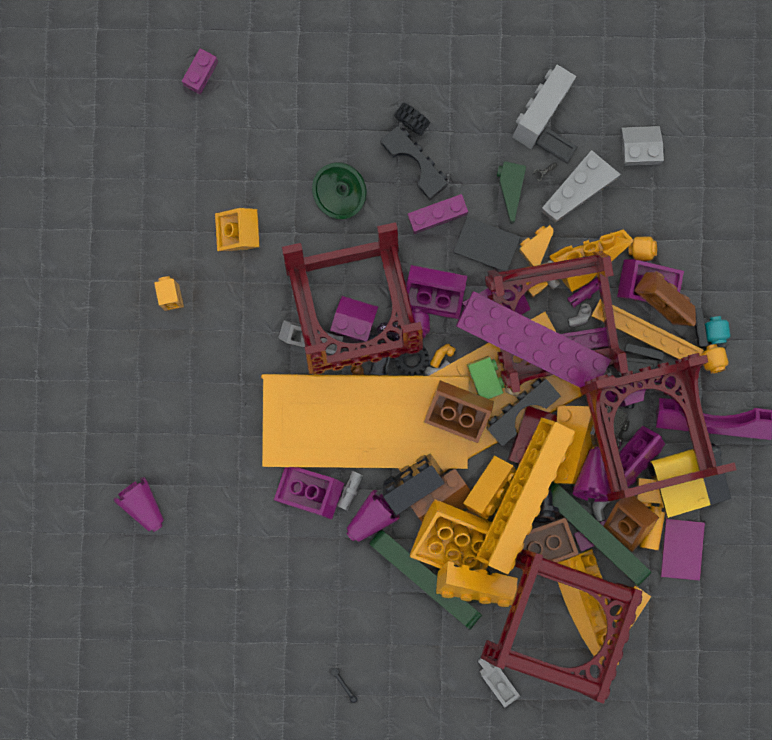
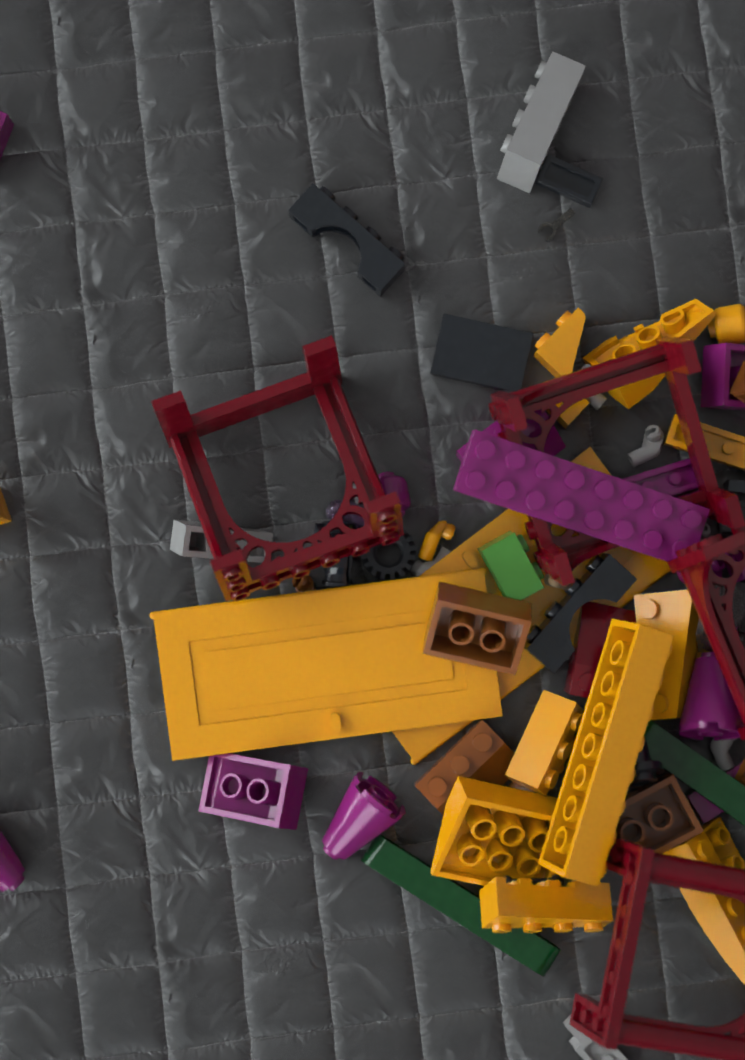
camera: 15 degrees left, 0 degrees up
(237, 229) = (79, 385): light orange slope -> none
(330, 195) = (222, 311): dark green dish -> none
(350, 490) = (318, 778): light grey pin -> none
(354, 319) = (286, 502): magenta slope -> none
(412, 118) = (334, 169): black tyre -> none
(413, 483) = (419, 755): black brick -> none
(436, 291) = (412, 439): magenta slope -> none
(437, 214) = (396, 315): magenta brick -> none
(511, 183) = (506, 253): dark green slope -> none
(584, 182) = (622, 233): light grey wedge -> none
(584, 293) = (648, 408): magenta pin -> none
(642, 146) = (705, 163): light grey slope -> none

